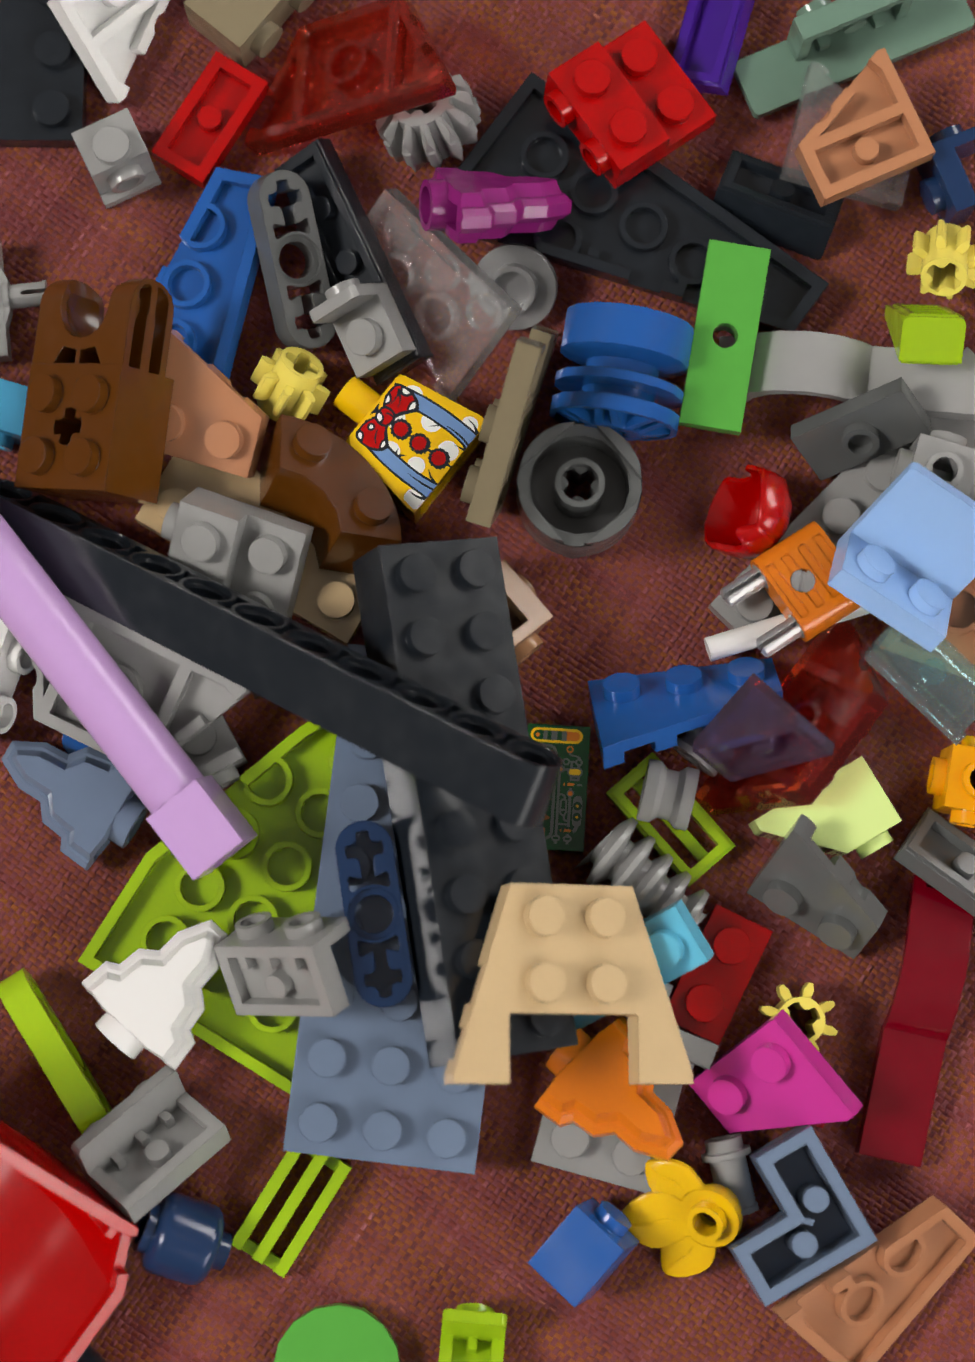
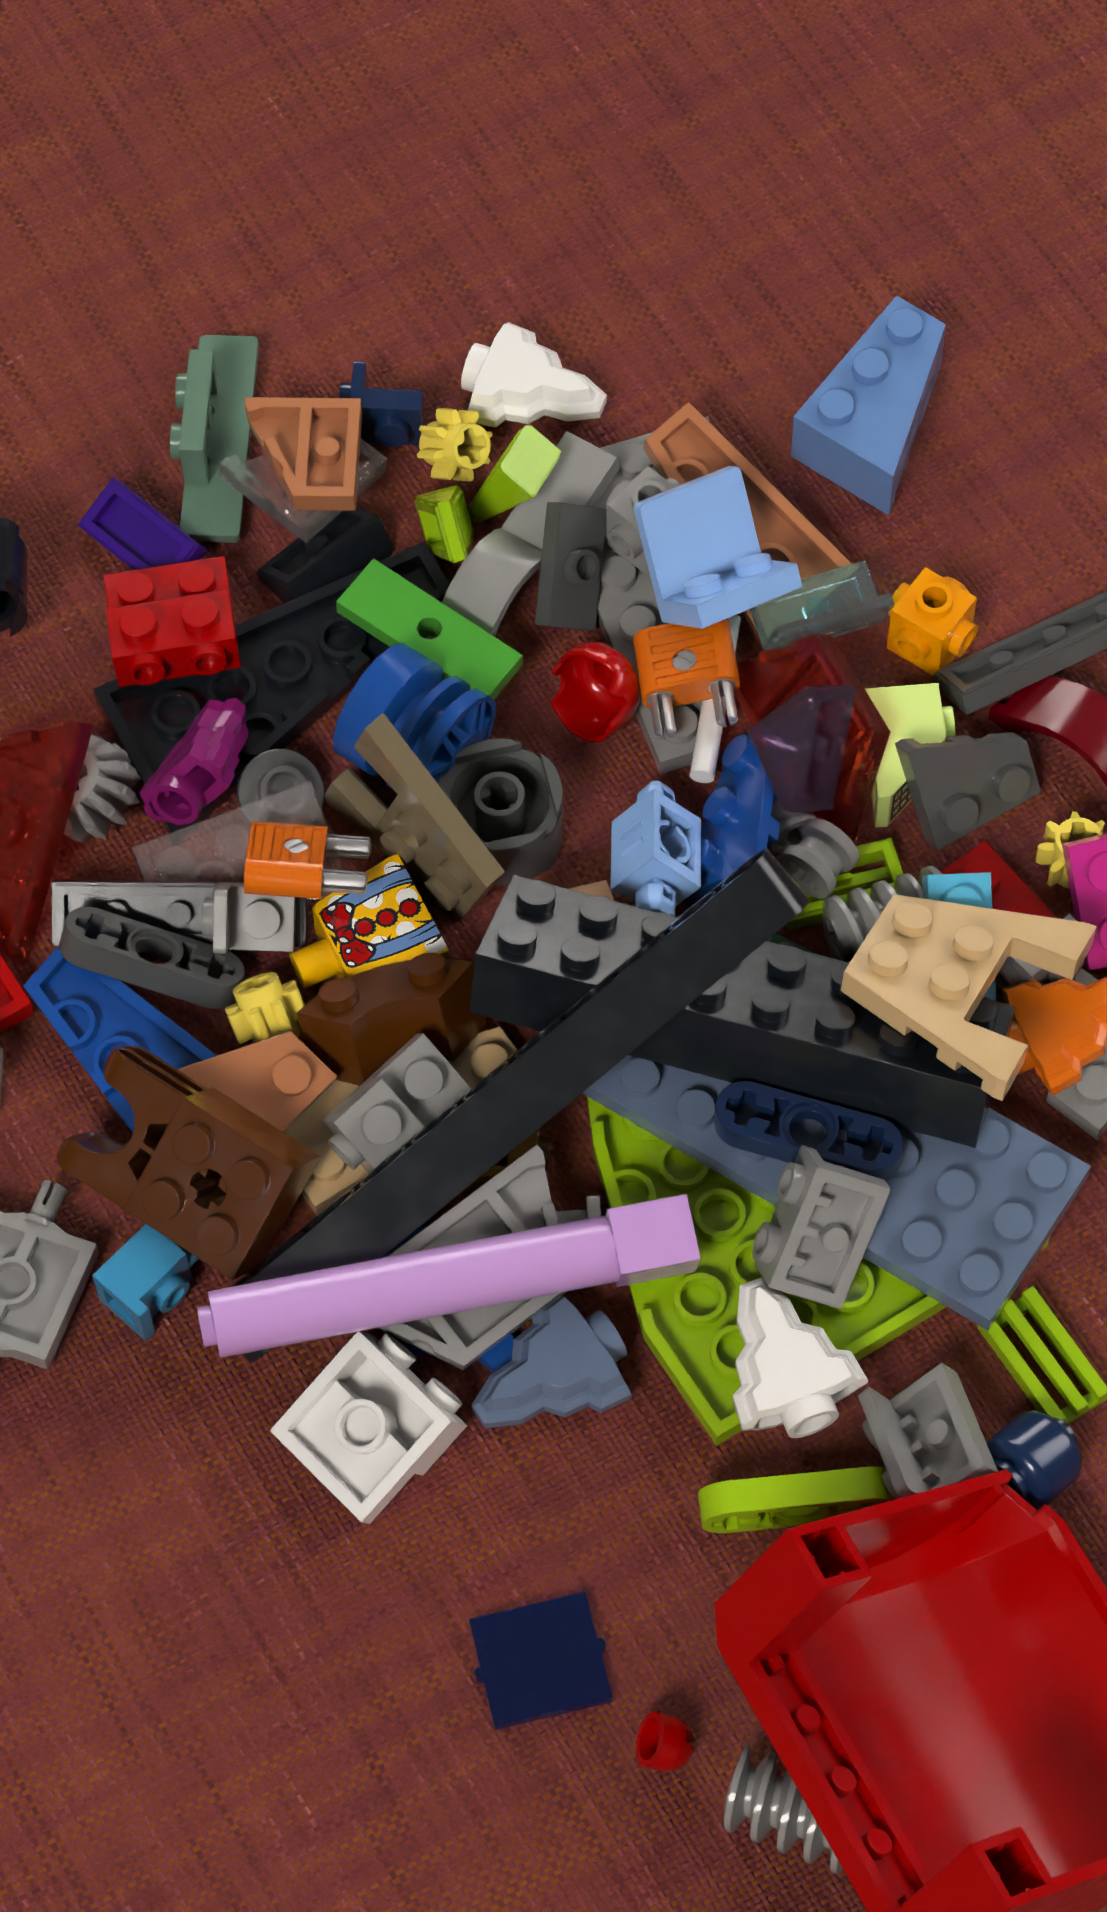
camera: 60 degrees left, 20 degrees down
(426, 332) = (292, 861): none -> orange piece
(601, 647) = (656, 851): none -> light blue piece
(851, 297) = (446, 523): none -> lime slope

